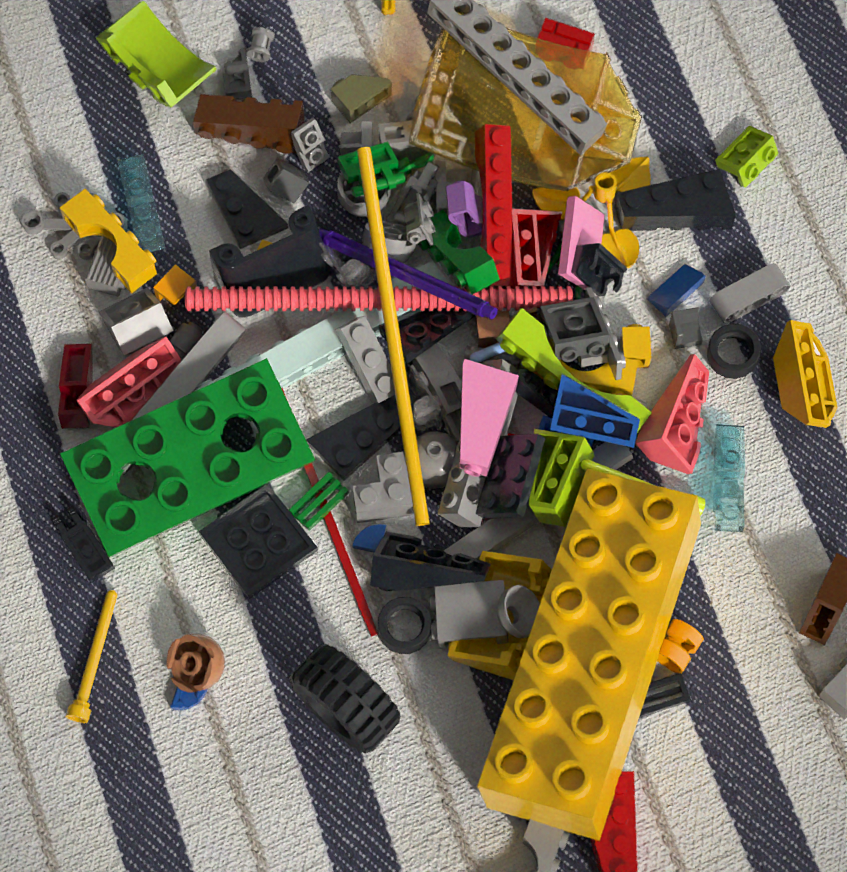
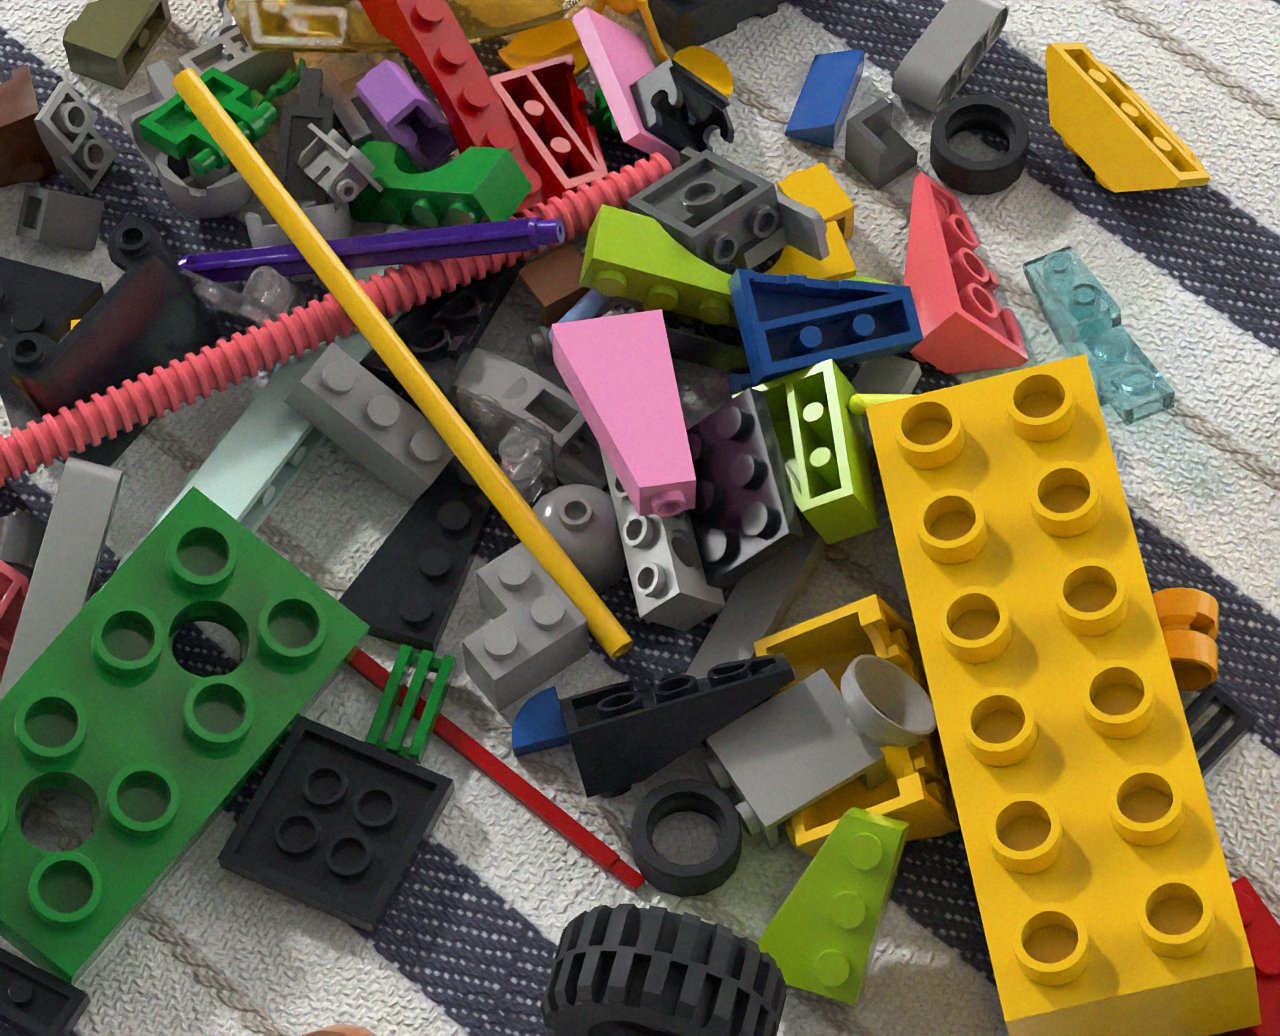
camera: 25 degrees left, 10 degrees down
(445, 695) = (837, 908): none -> lime wedge

